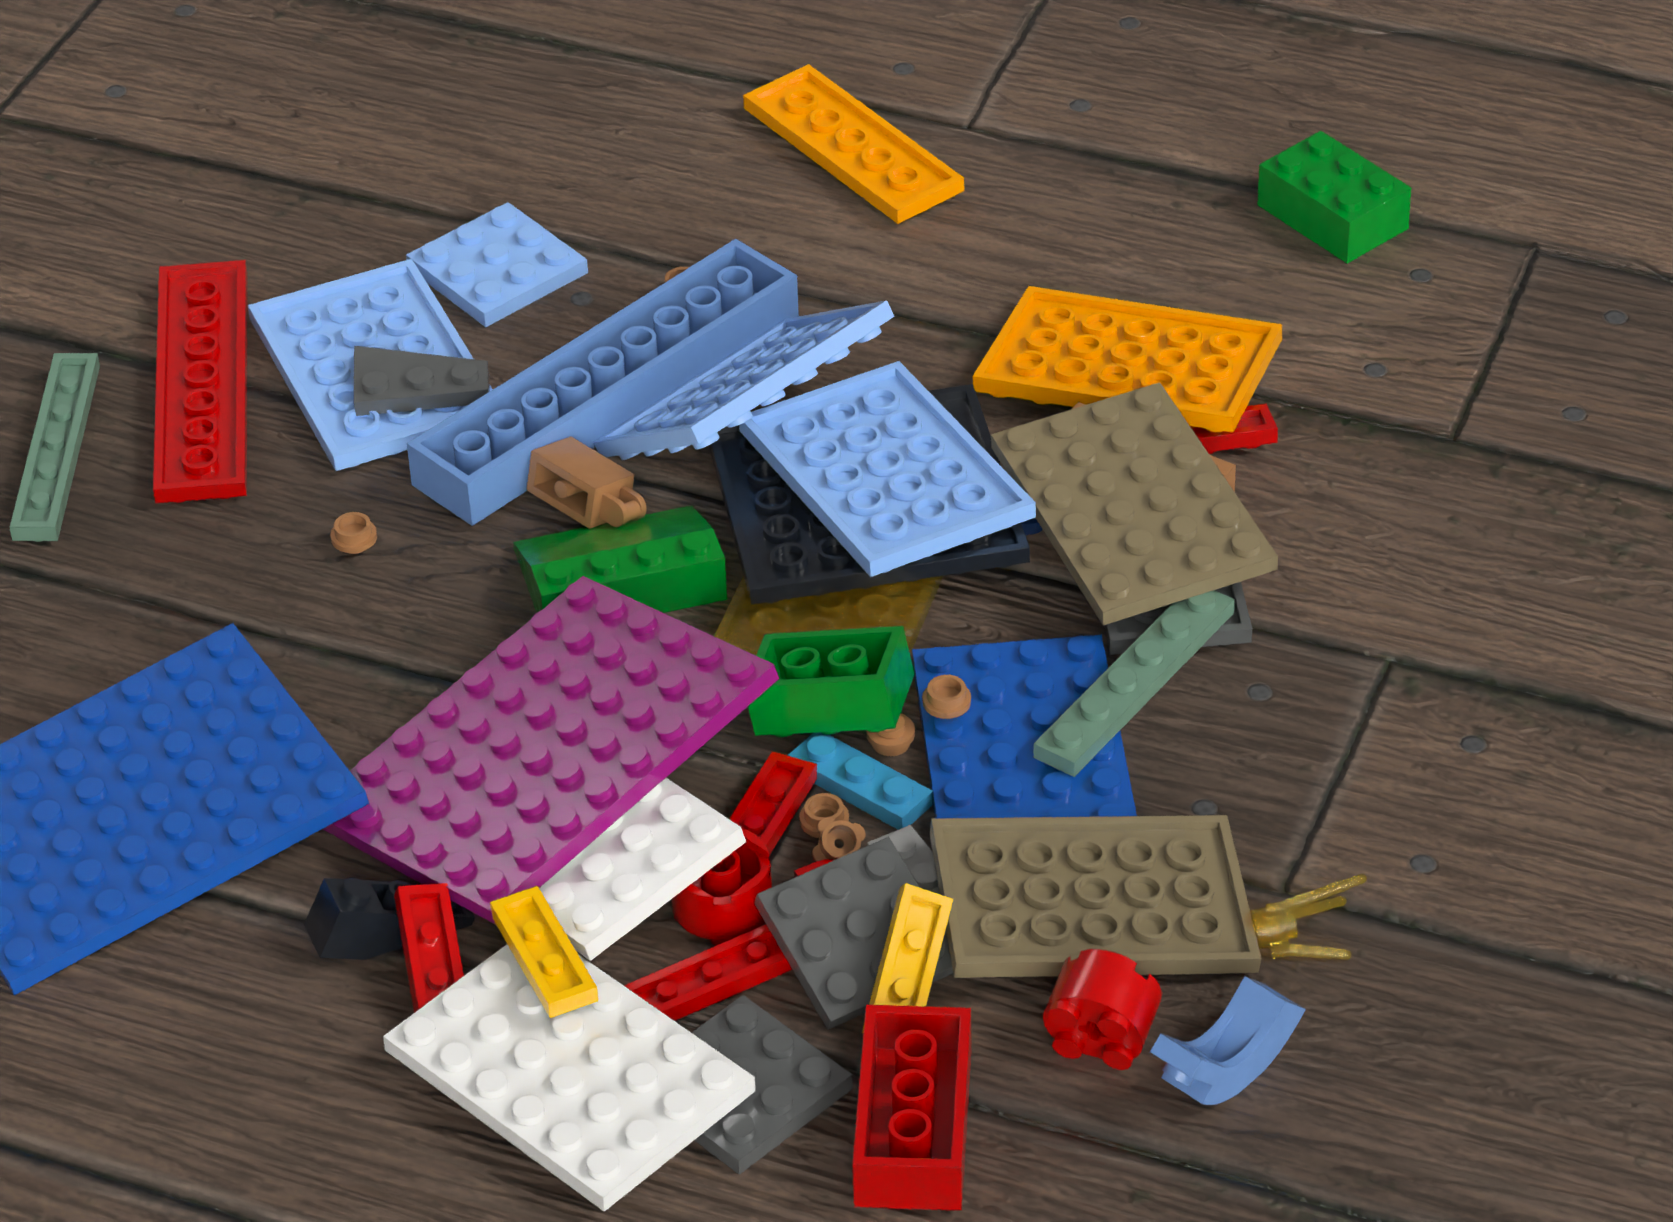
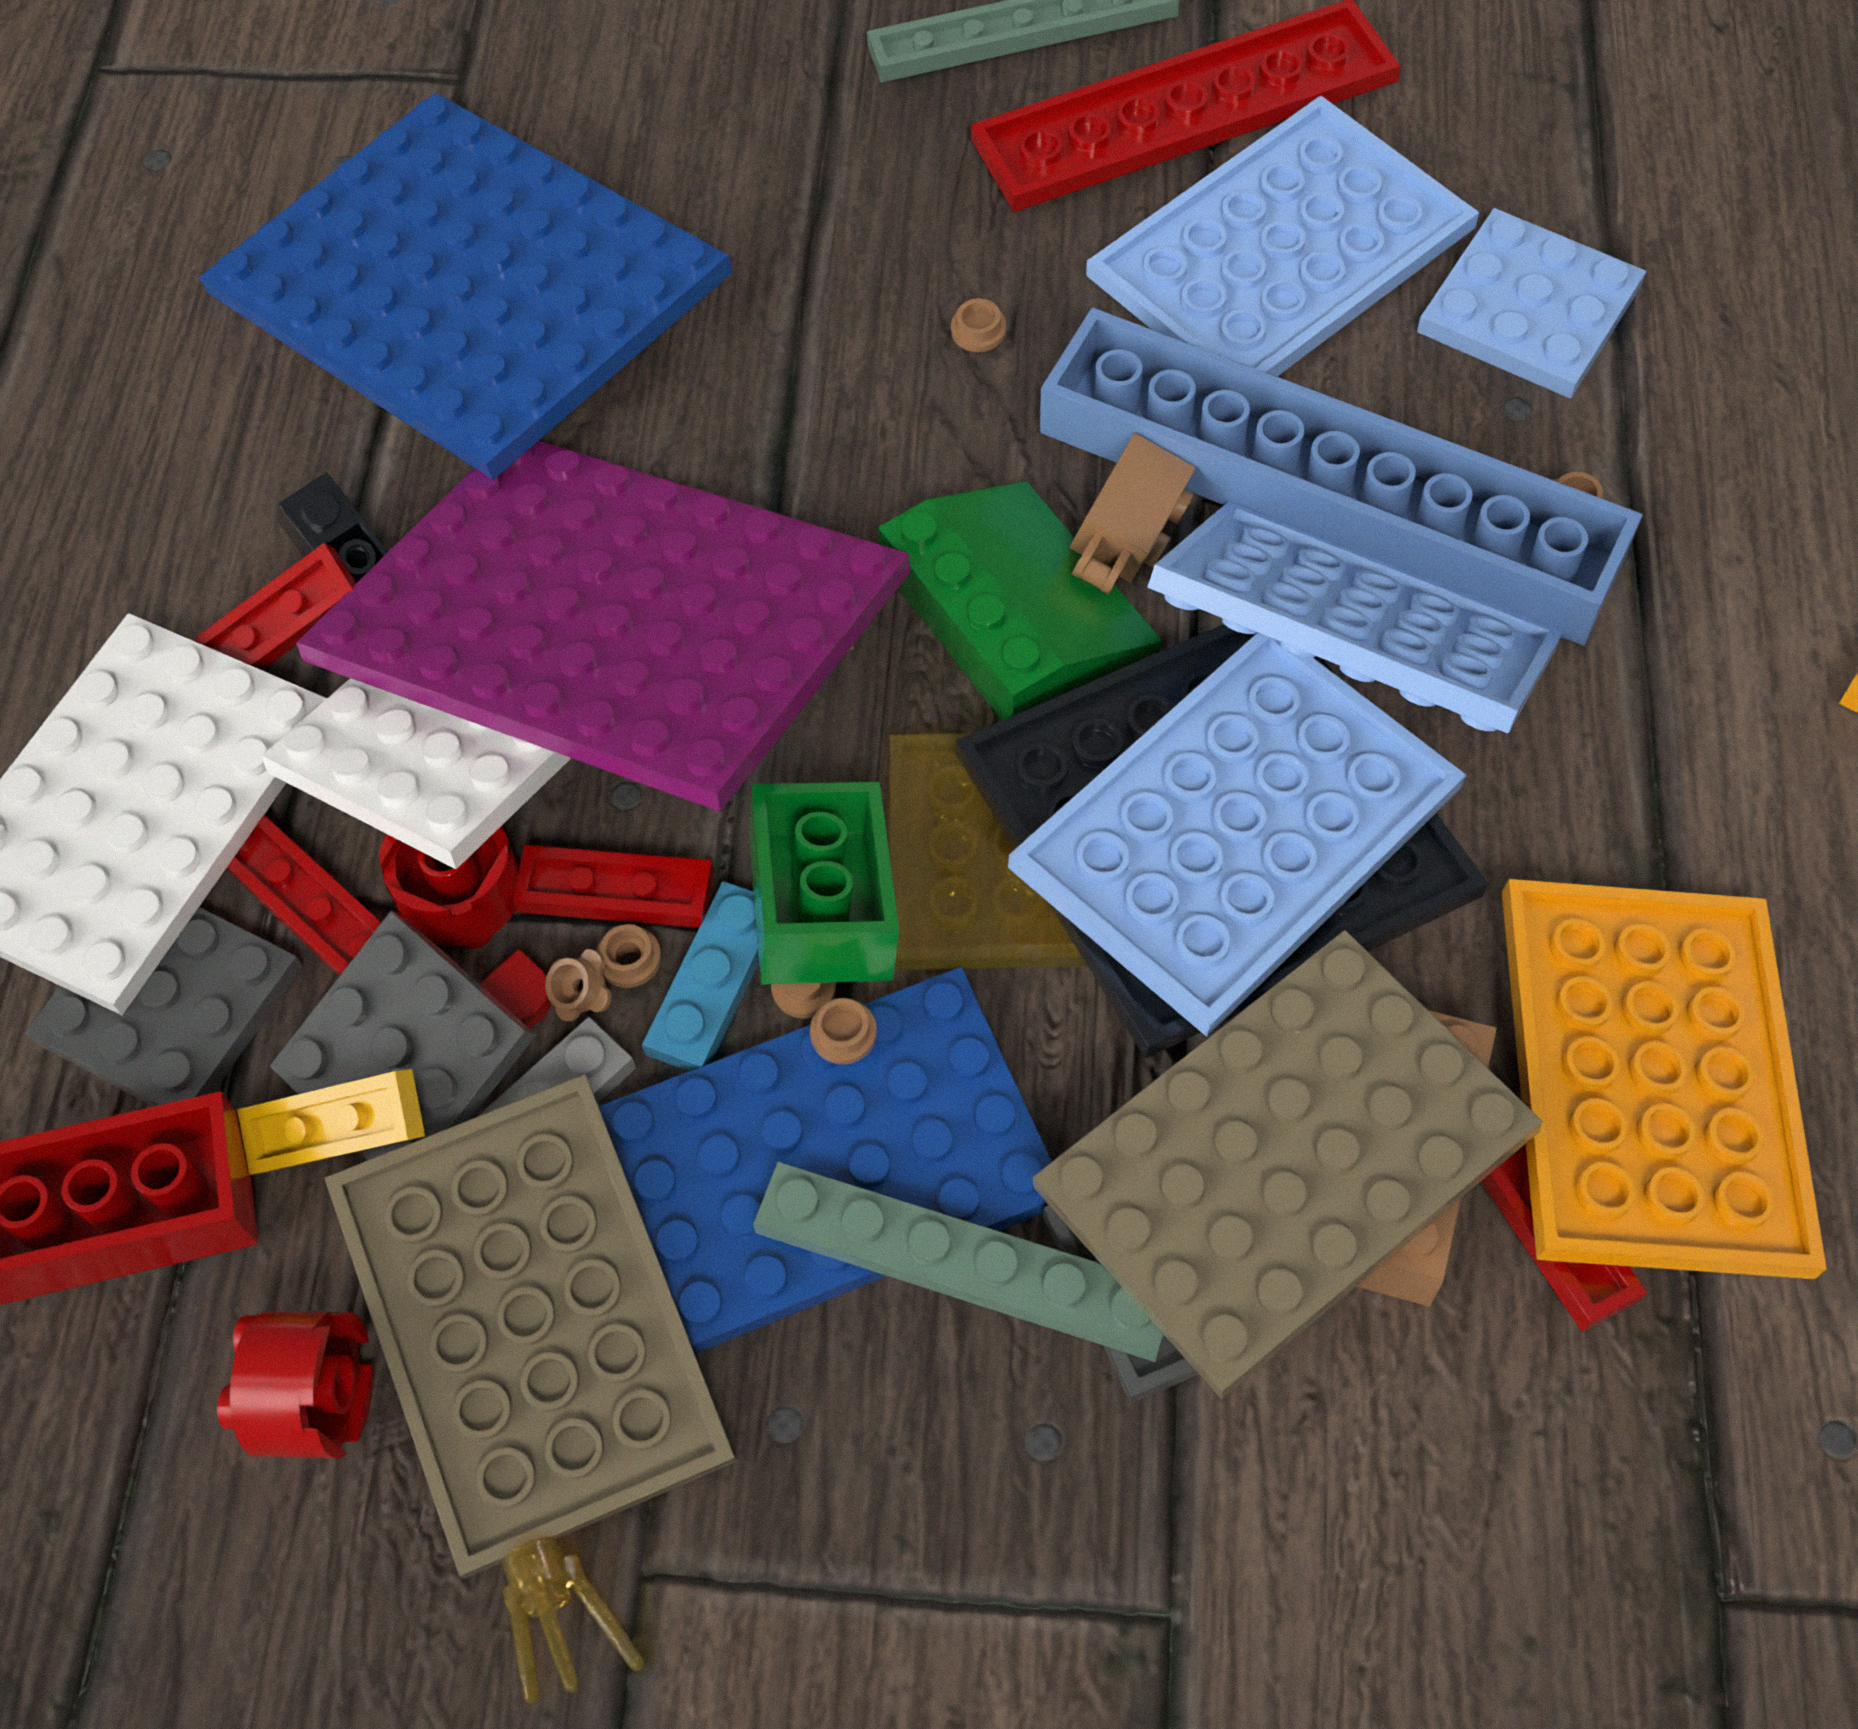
camera: 75 degrees right, 20 degrees up
(415, 380) = (1245, 287): dark grey wing -> none
(544, 951) = (239, 716): yellow plate -> none
(1234, 1048) = (259, 1565): medium blue arch -> none

